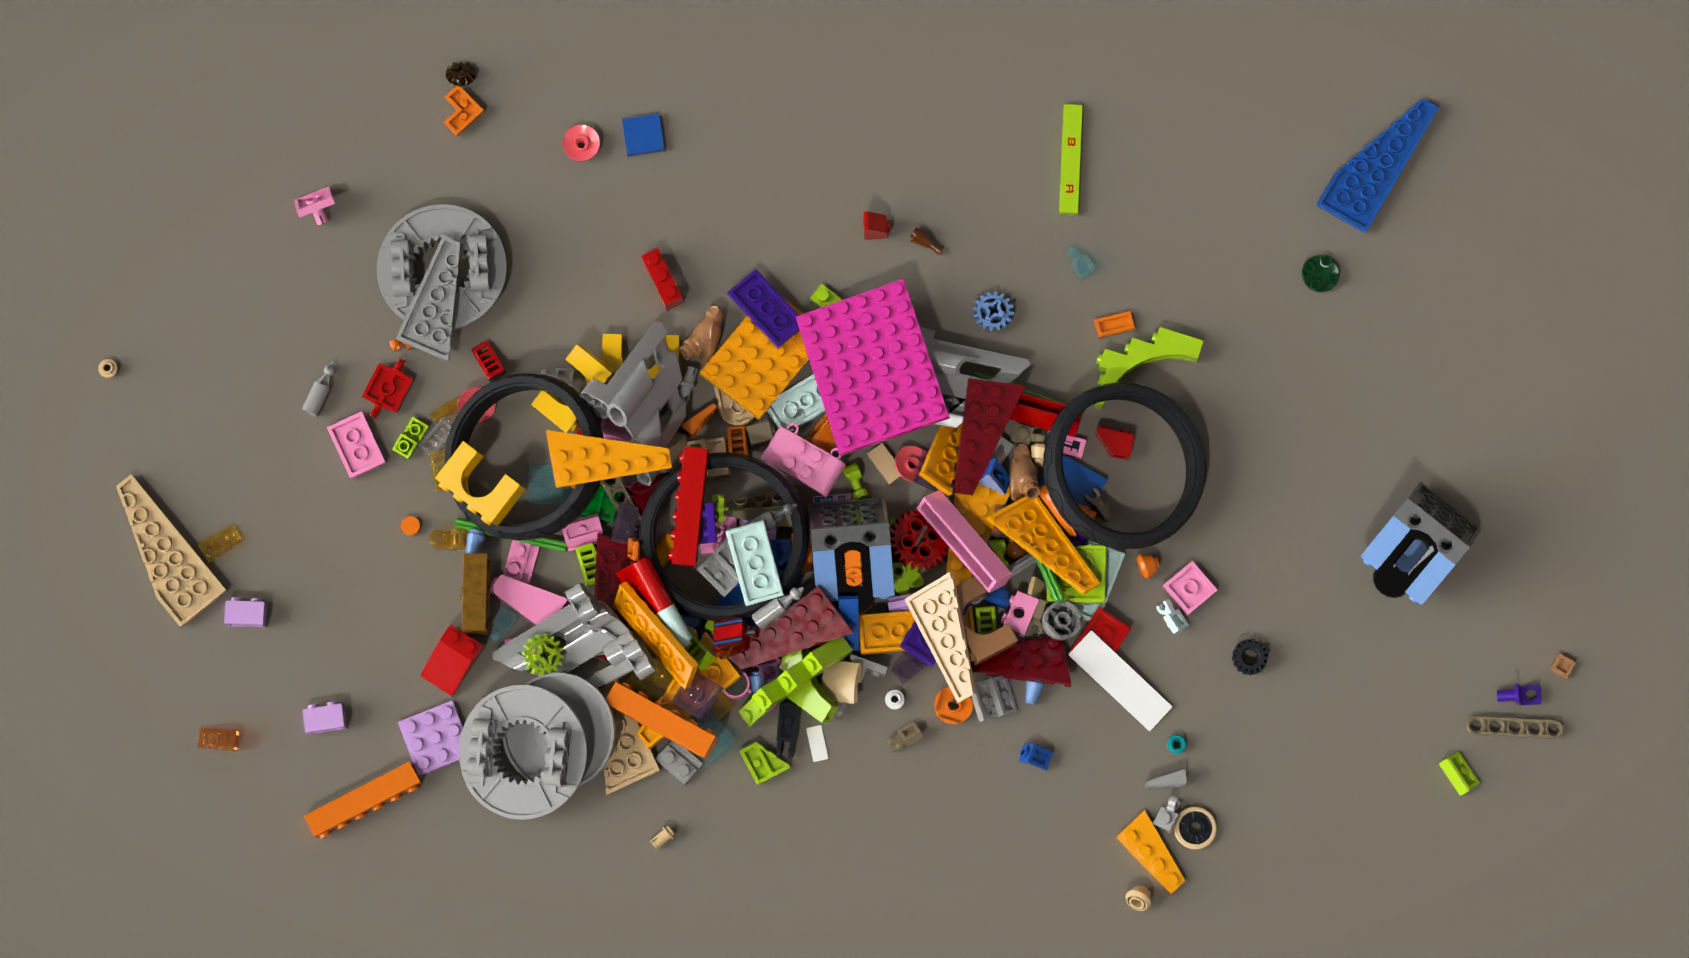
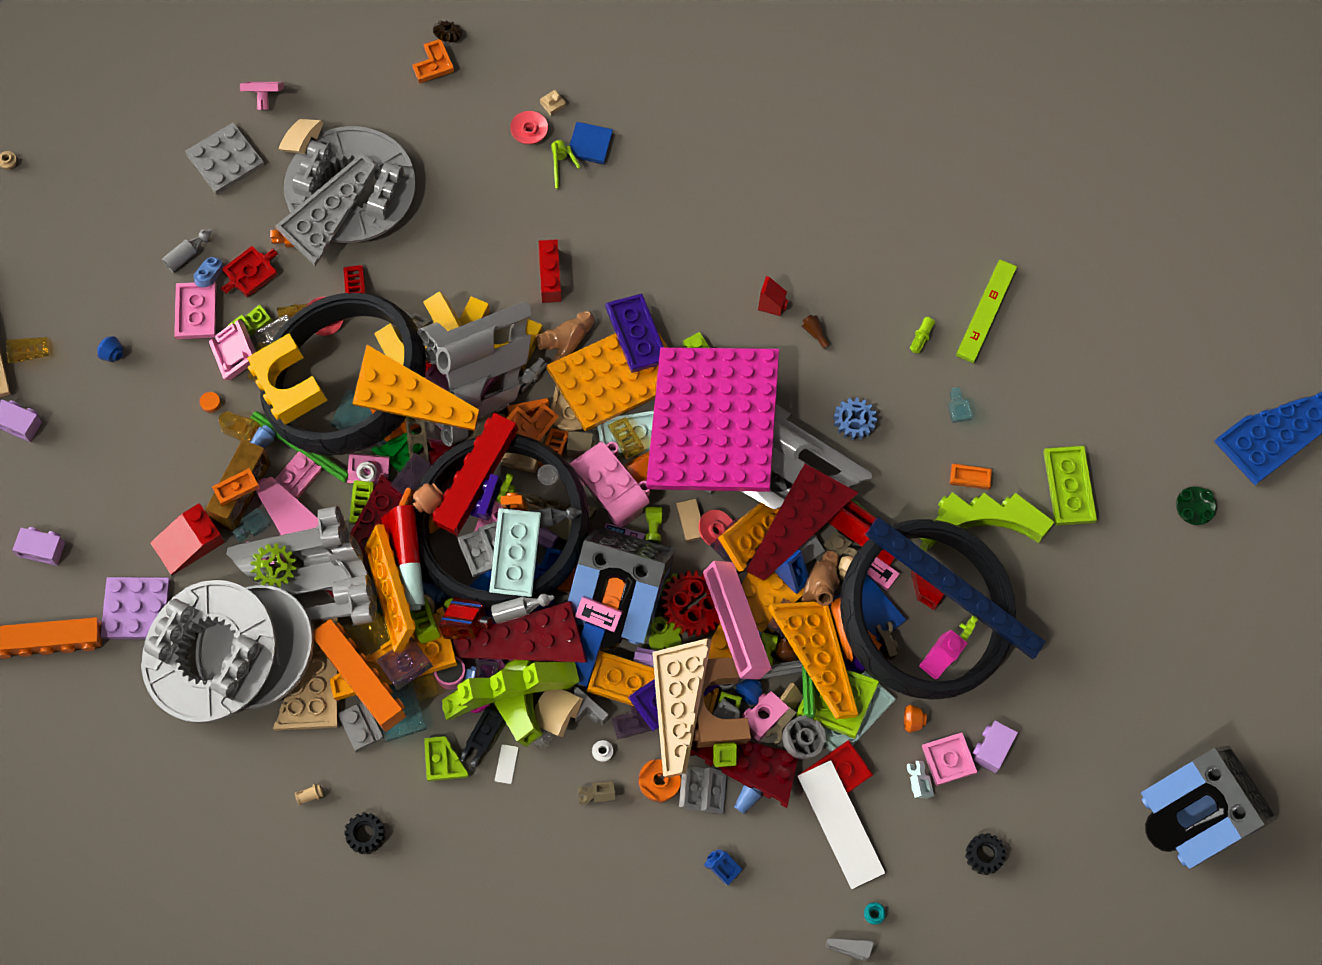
camera: 20 degrees right, 10 degrees down
(298, 514) = (110, 349): none -> blue cone
(310, 285) = (224, 158): none -> light grey plate
(351, 400) = (208, 272): none -> medium blue plate
(373, 237) = (299, 135): none -> tan slope
(408, 467) = (233, 347): none -> bright pink container
(480, 600) = (235, 487): none -> orange plate
(586, 540) = (360, 471): none -> white plate
(591, 107) = (552, 102): none -> tan tile
(620, 157) = (560, 152): none -> lime plant
(657, 544) = (427, 498): none -> nougat head
(712, 436) = (534, 426): none -> orange plate
(736, 520) = (514, 501): none -> orange plate
(736, 851) = (364, 820): none -> black tyre
(752, 482) = (547, 474): none -> clear plate
(809, 421) = (632, 450): none -> clear yellow slope
(847, 586) = (598, 614): none -> bright pink tile
(986, 624) = (726, 711): none -> light grey tile
(1001, 663) = (724, 754): none -> lime tile
(1022, 206) = (922, 335): none -> lime axle
(1141, 441) = (955, 588): none -> dark blue plate
(1152, 504) = (943, 653): none -> dark pink arch
(1165, 473) = (968, 628): none -> lime piece
(1204, 299) = (1069, 485): none -> lime plate
(1224, 561) = (994, 747): none -> lavender brick

